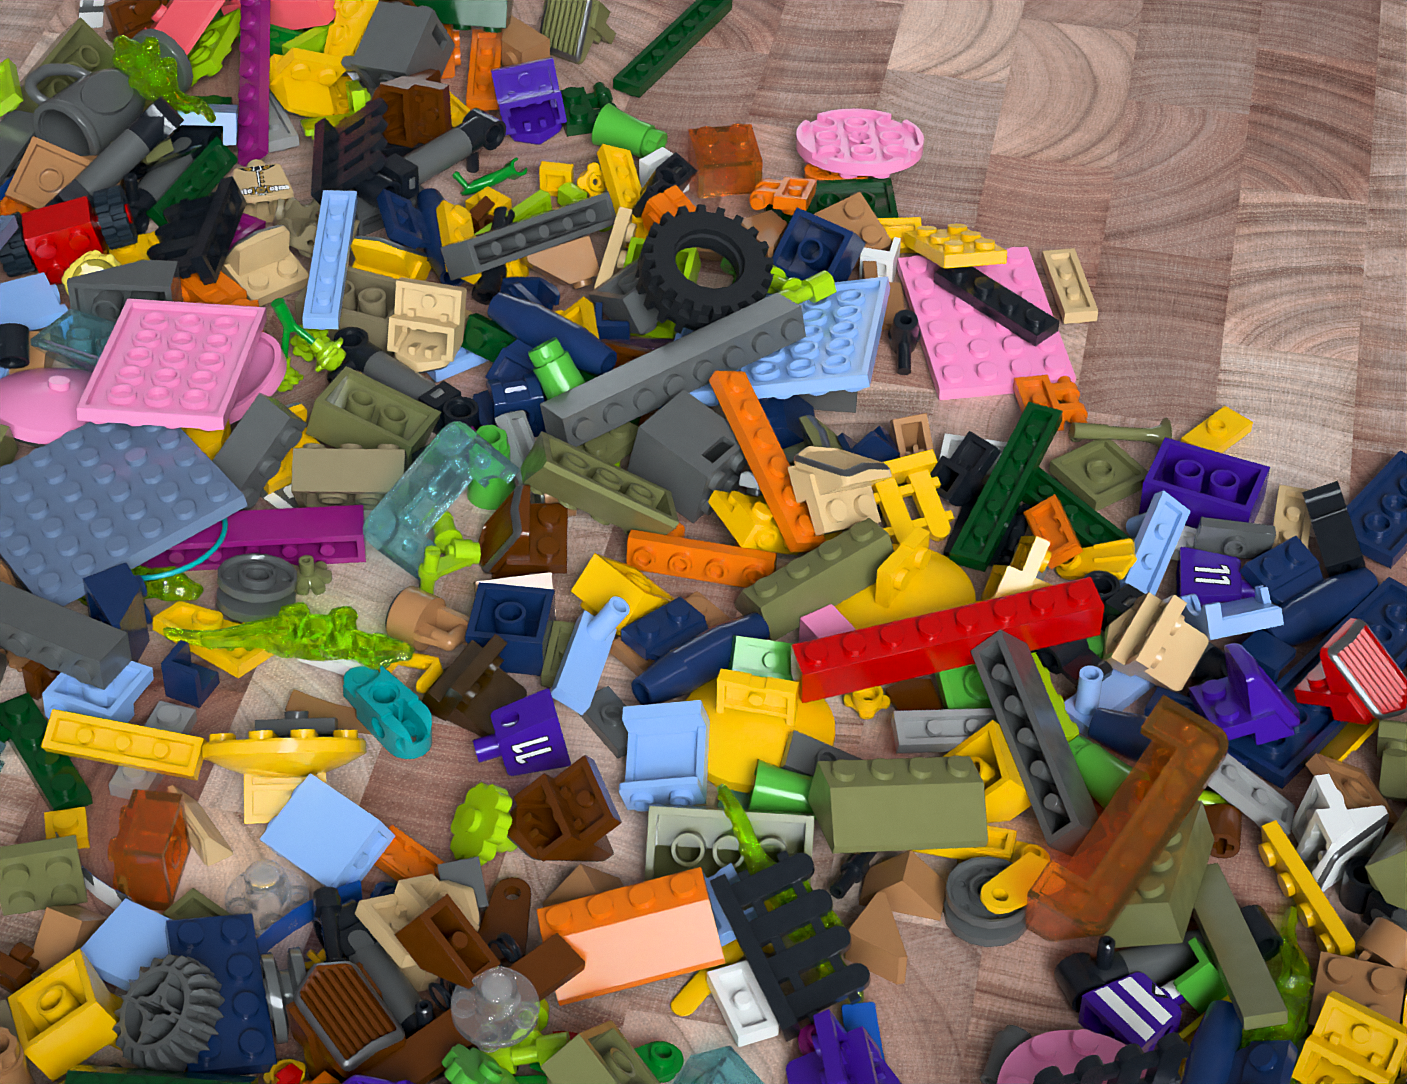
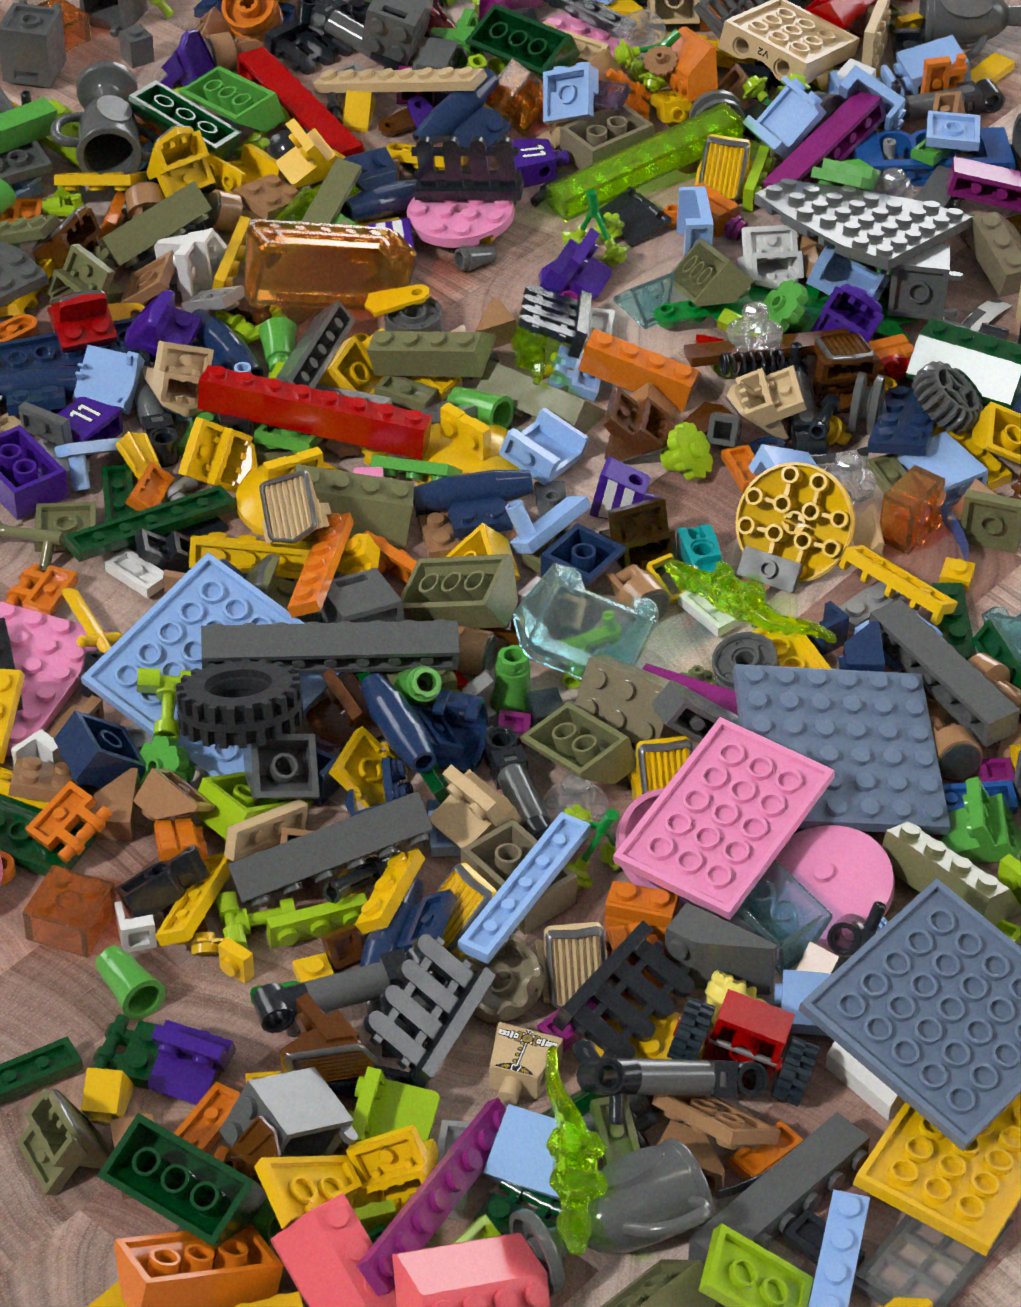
camera: 150 degrees left, 0 degrees up
(447, 944) = (771, 348): reddish brown slope -> none
(570, 57) = (105, 1095): none -> yellow slope
(956, 374) = (96, 635): none -> yellow sword

